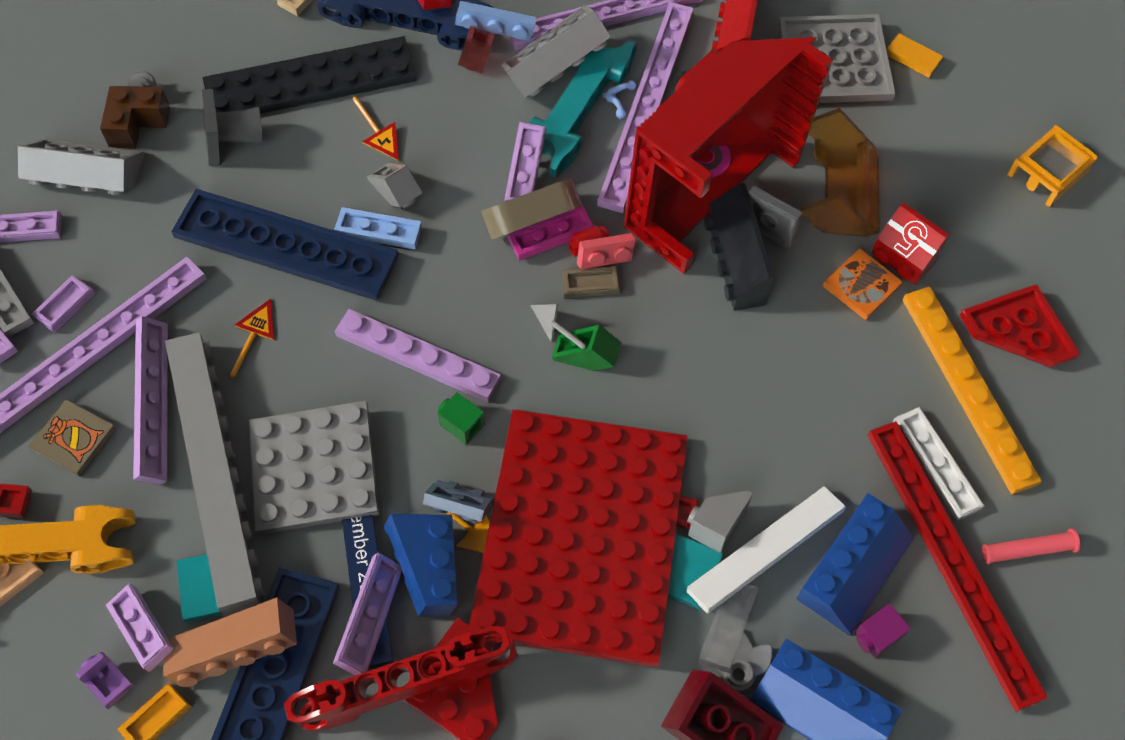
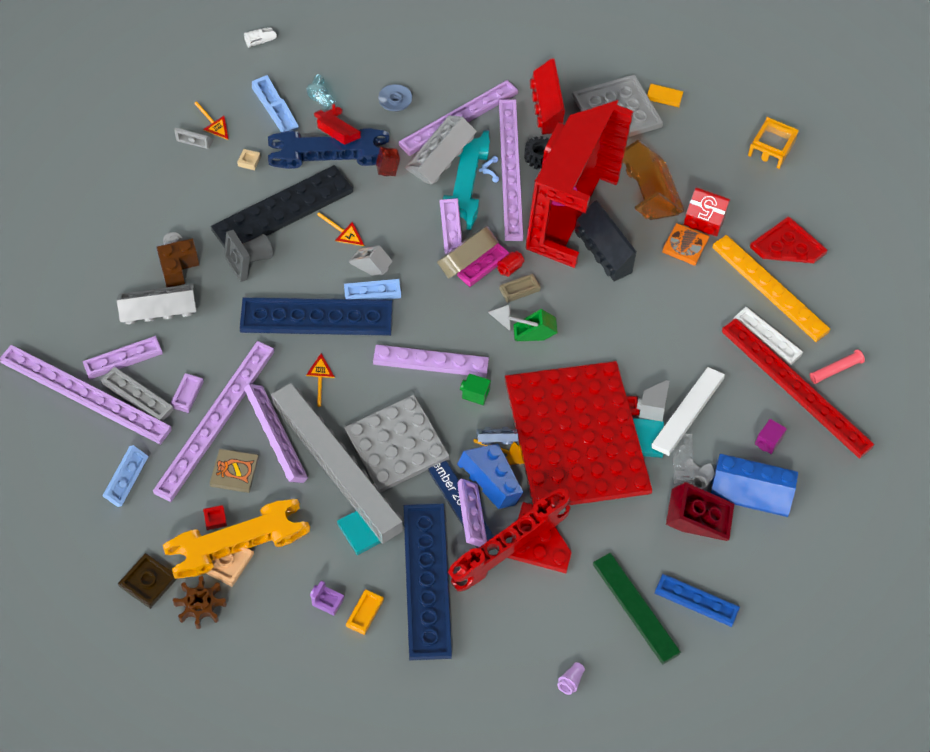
camera: 20 degrees left, 5 degrees down
(139, 627) = (334, 562): lavender tile -> none
(230, 642) = (396, 552): nougat brick -> none
(495, 20) = (394, 139): light blue plate -> none
(605, 251) = (523, 266): coral plate -> none
(775, 218) = (622, 216): light grey tile -> none
(856, 564) = (742, 404): blue slope -> none

